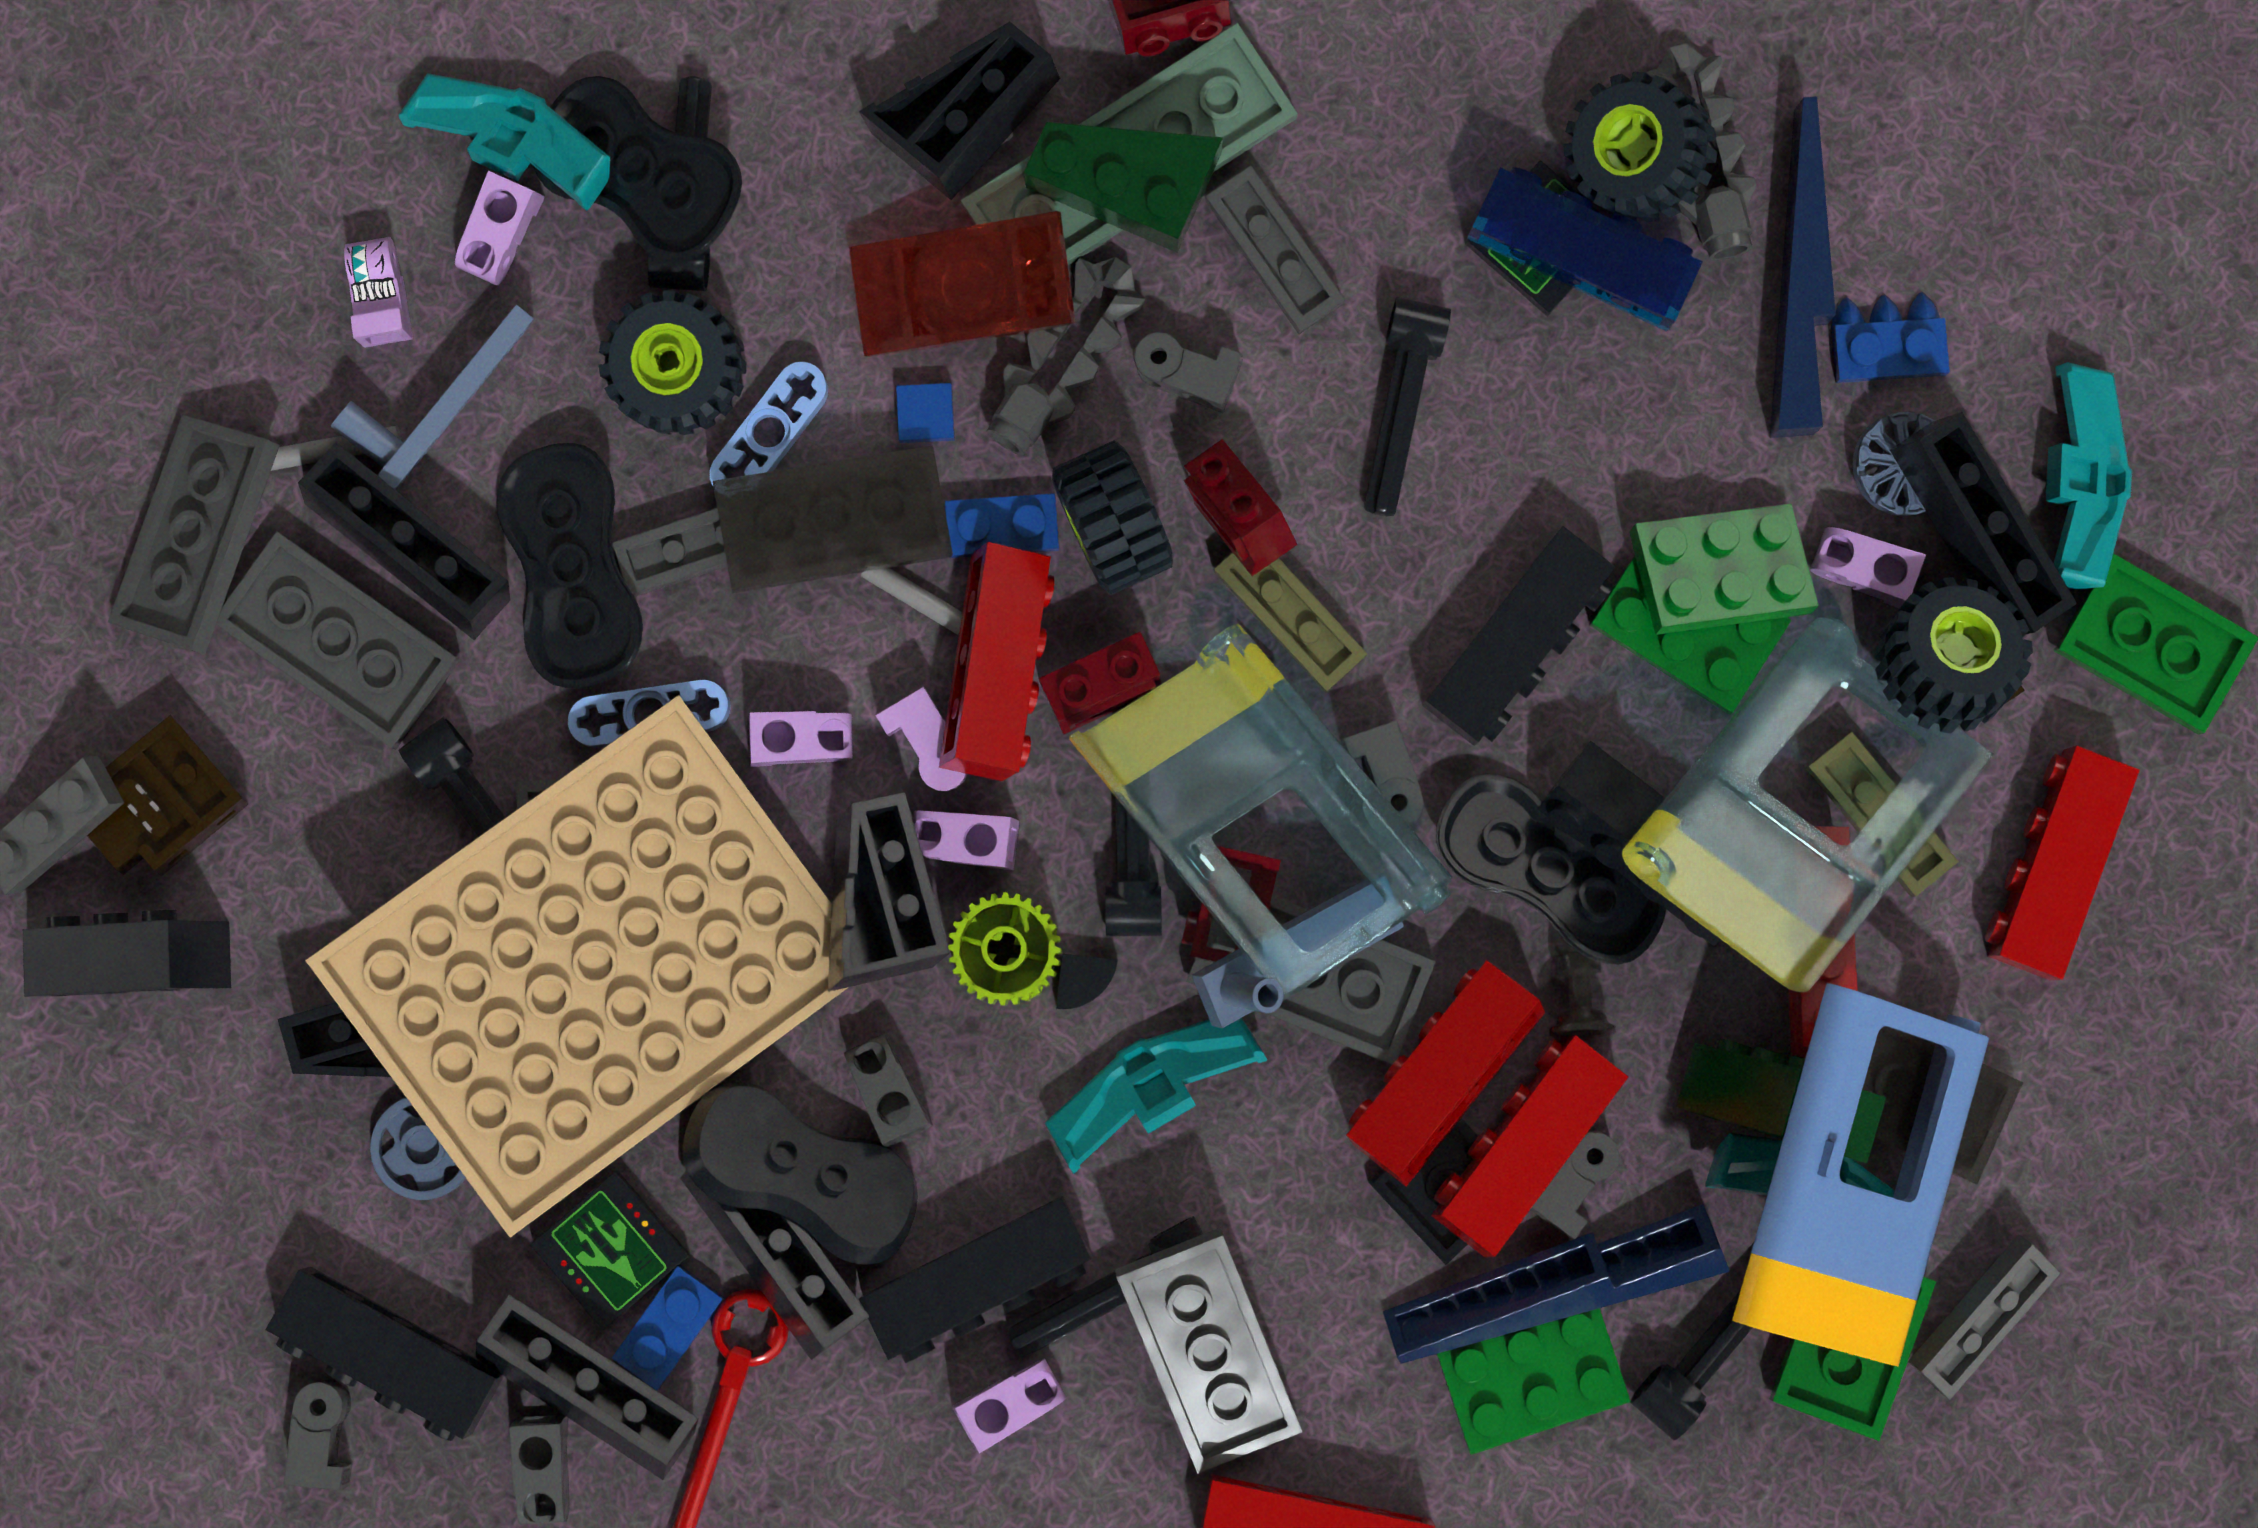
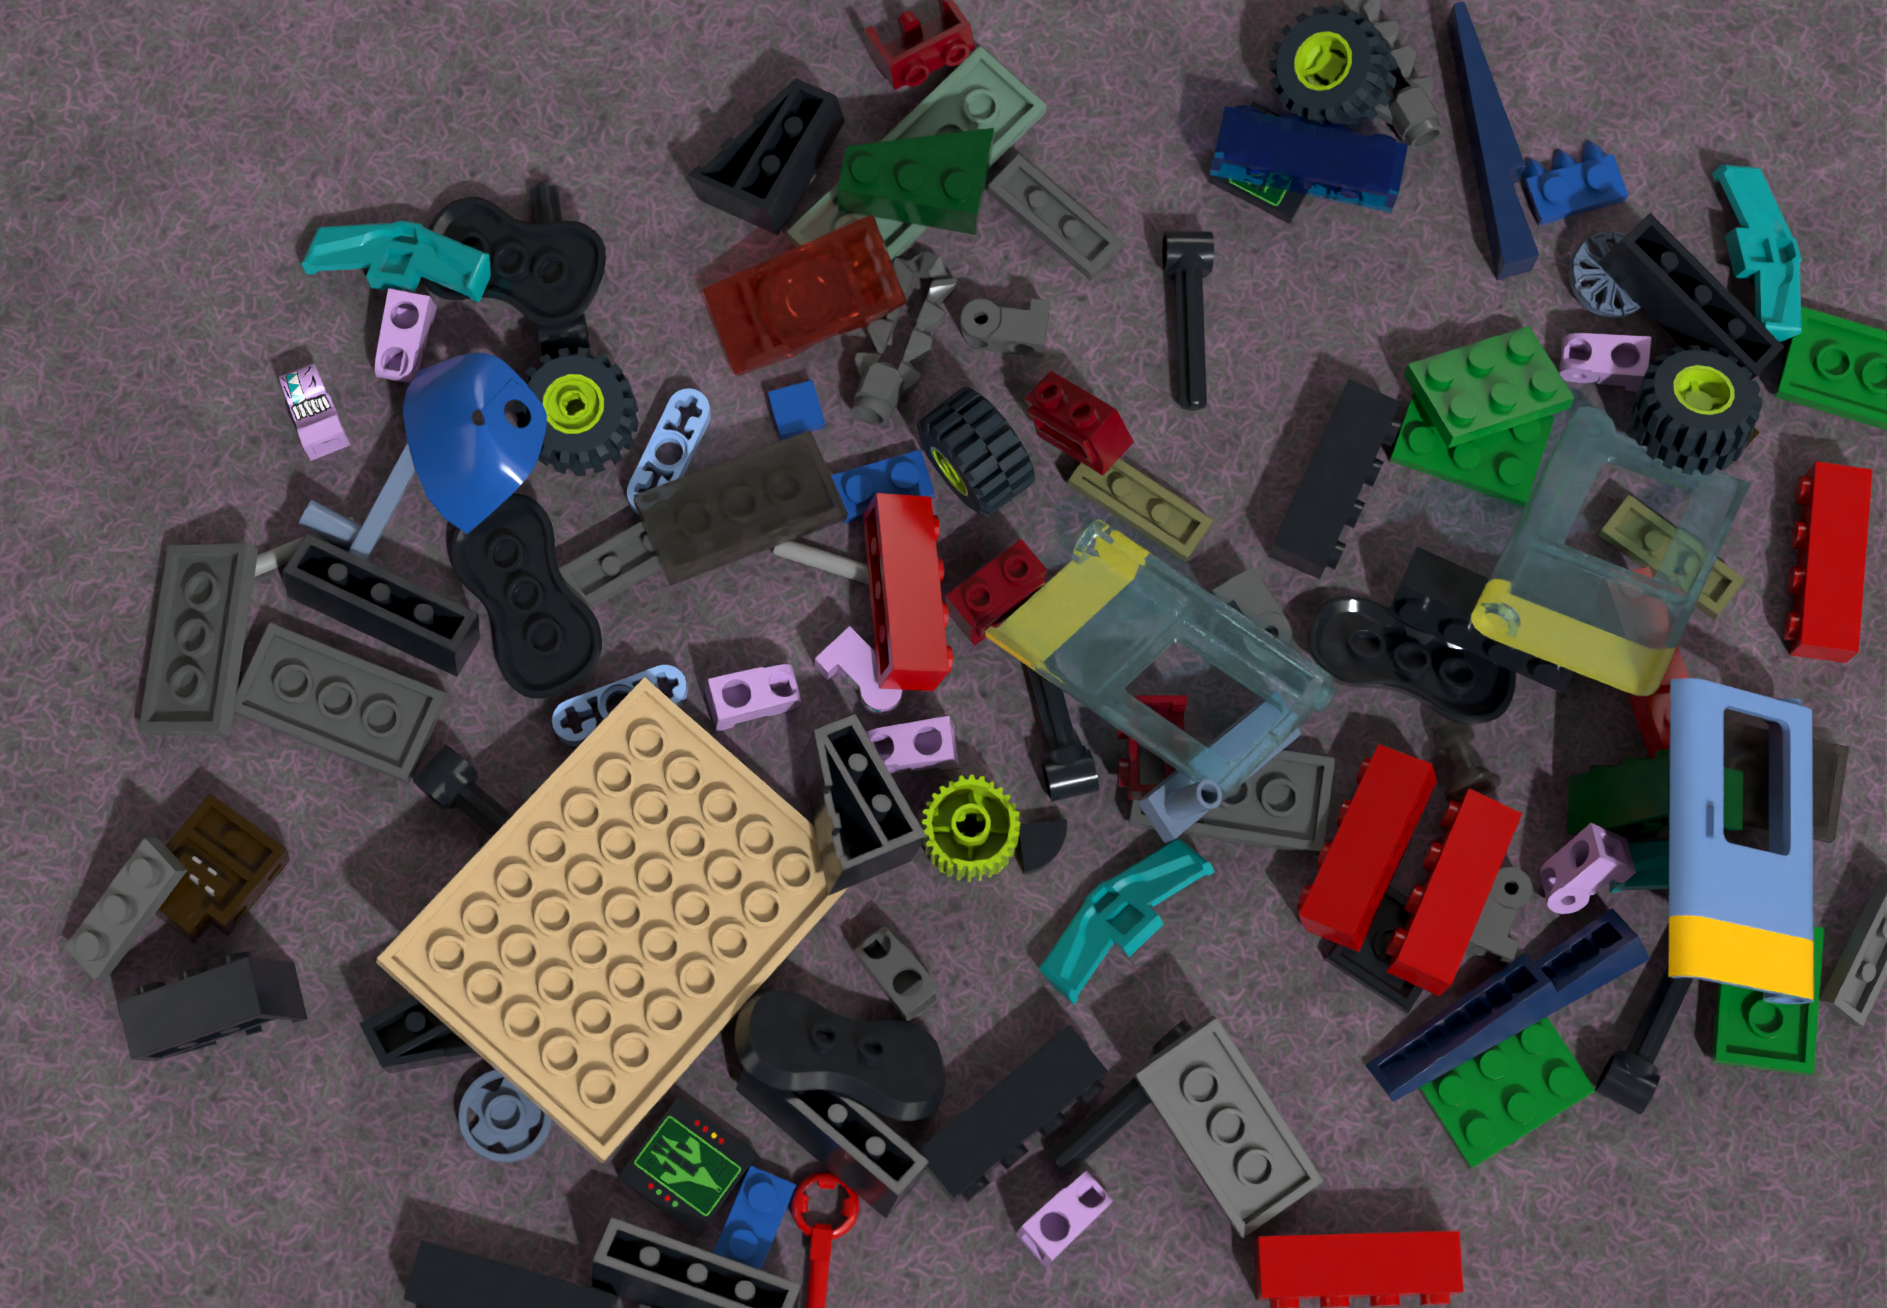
camera: 20 degrees left, 10 degrees down
(522, 406) = (466, 465): none -> blue piece
(1684, 1155) = (1584, 868): none -> lavender leg

